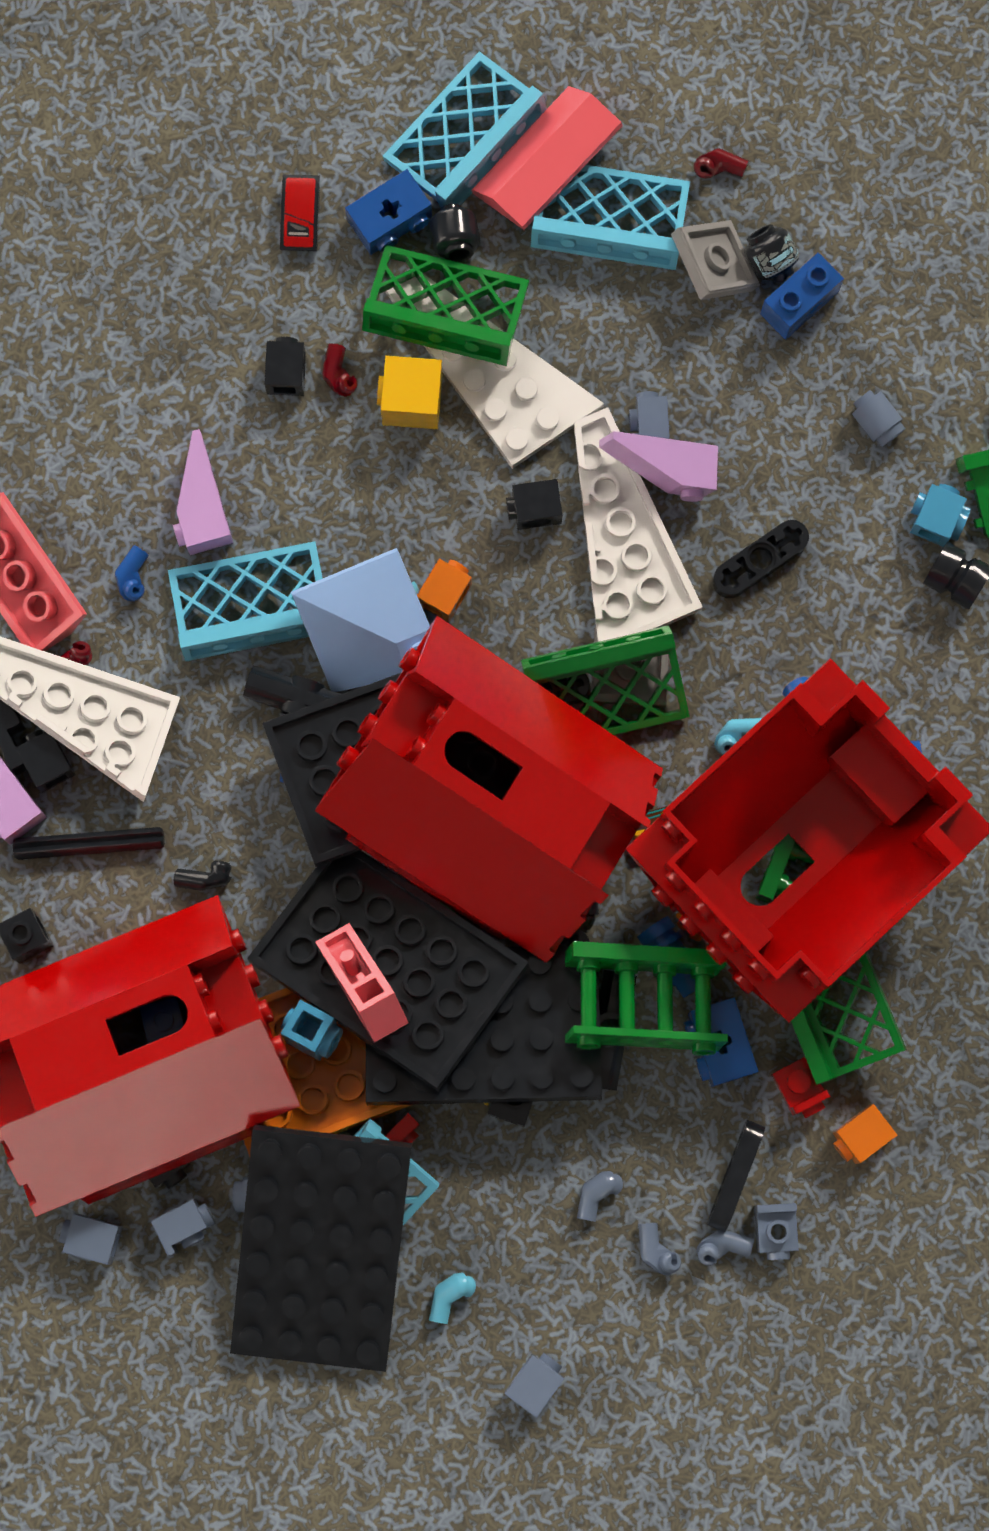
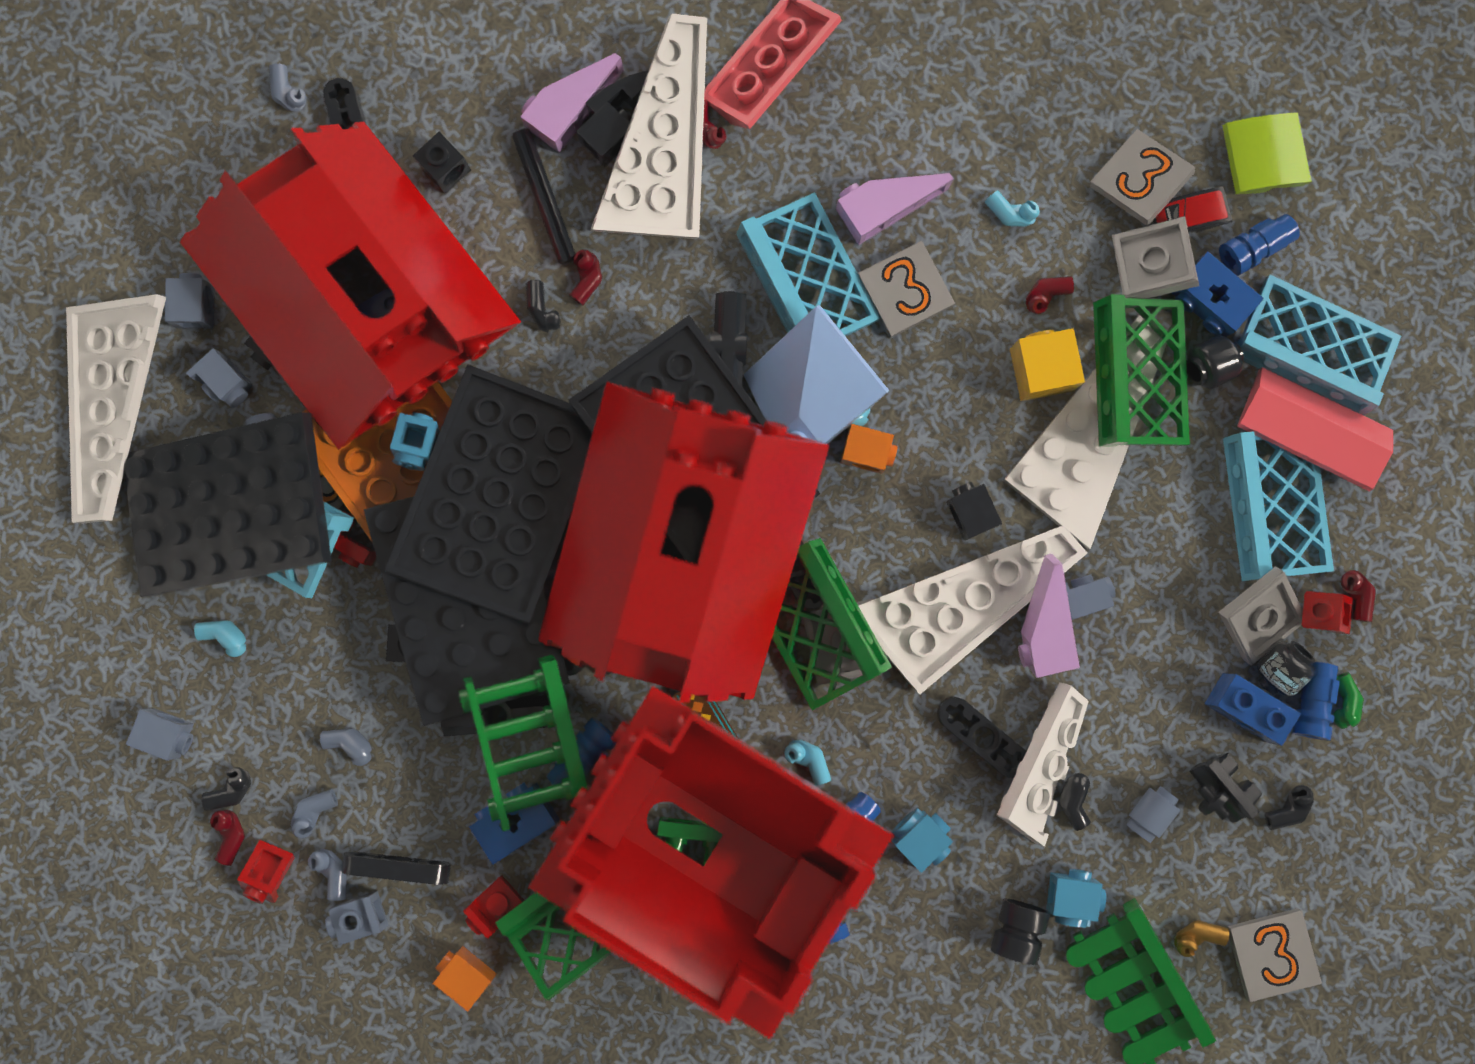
camera: 80 degrees right, 5 degrees up
(127, 574) = (800, 158): blue arm -> none
(146, 1346) = (107, 374): none -> white wing
(185, 819) = (589, 275): none -> dark red arm
(248, 384) = (1012, 215): none -> medium azure arm
(250, 248) = (1142, 177): none -> light grey tile
(261, 123) = (1266, 153): none -> lime slope
(285, 367) = (1037, 242): black brick -> none
(293, 507) = (906, 289): none -> light grey tile
(337, 259) = (1155, 259): none -> light grey tile
(349, 153) = (1262, 241): none -> blue axle
(362, 982) = (464, 473): coral slope -> none
(614, 1328) = (232, 792): none -> black arm
(657, 1339) = (232, 834): none -> dark red arm
(706, 1312) = (264, 872): none -> red bracket
(728, 199) = (1327, 612): none -> red bracket
(803, 507) = (1044, 764): none -> white wing
(812, 234) = (1317, 703): none -> blue axle
(819, 201) = (1352, 702): none -> green arm
(844, 490) = (1072, 799): none -> black arm
(845, 642) = (922, 839): none -> dark azure brick
(875, 346) = (1221, 791): none -> black hips
(910, 285) = (1294, 810): none -> black arm

